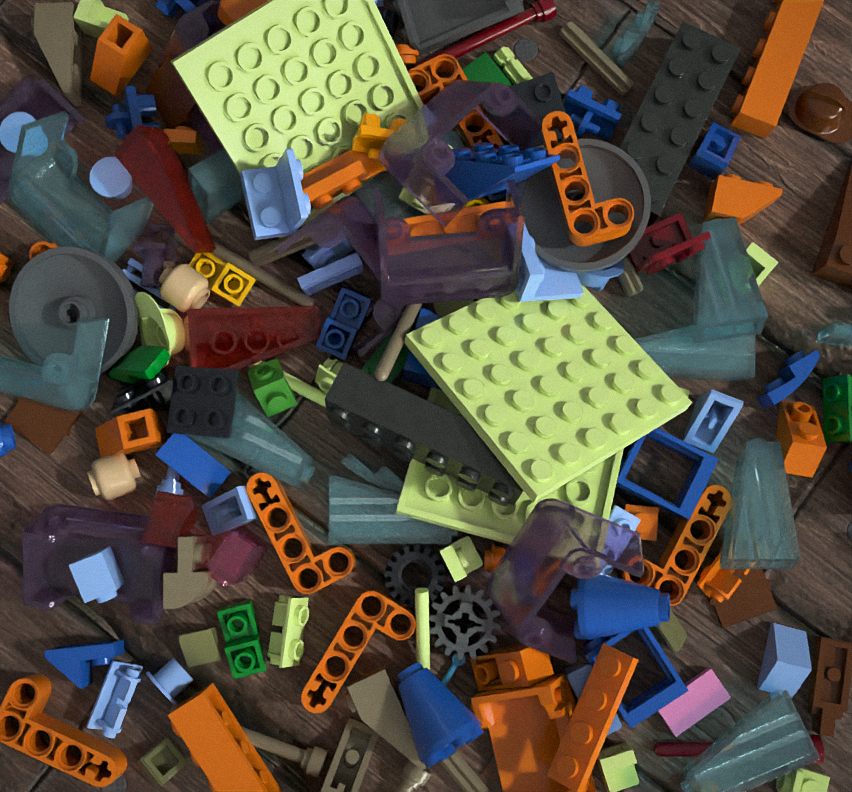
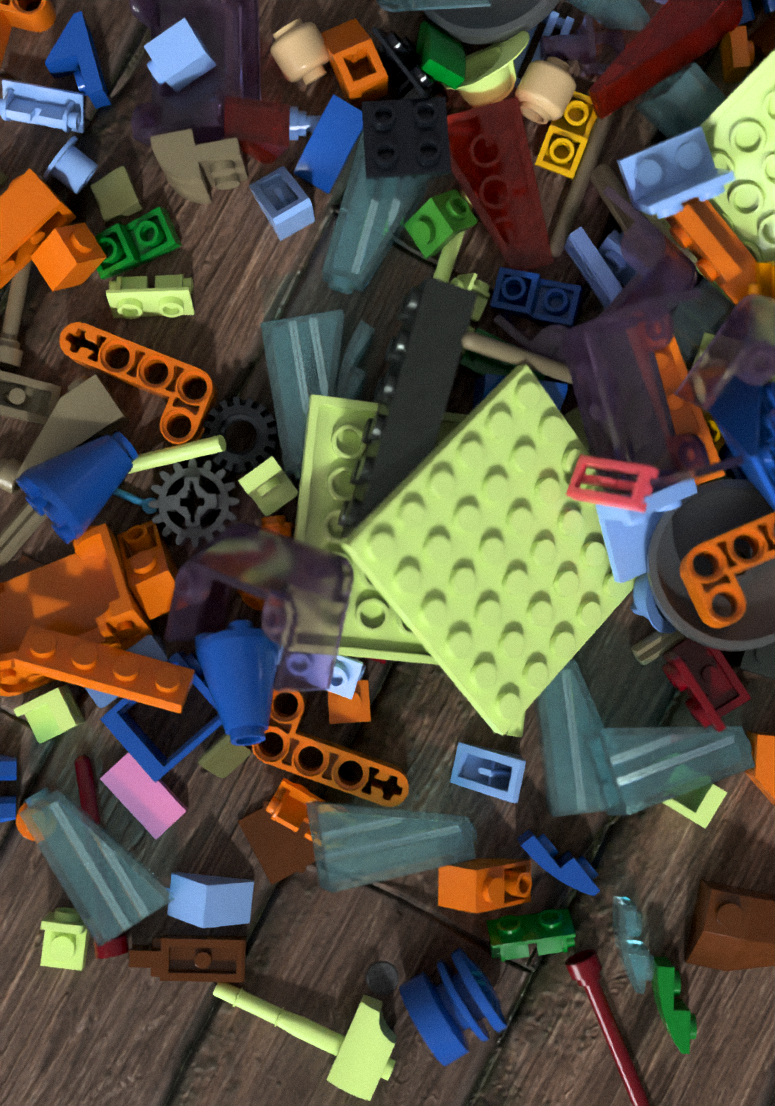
camera: 80 degrees right, 5 degrees up
(235, 558) = (225, 215): clear pink brick -> none
(245, 694) = (68, 256): none -> orange brick
(293, 529) = (272, 281): orange beam -> none
(521, 261) = (638, 489): none -> coral tile
(693, 485) = (403, 759): blue window -> none

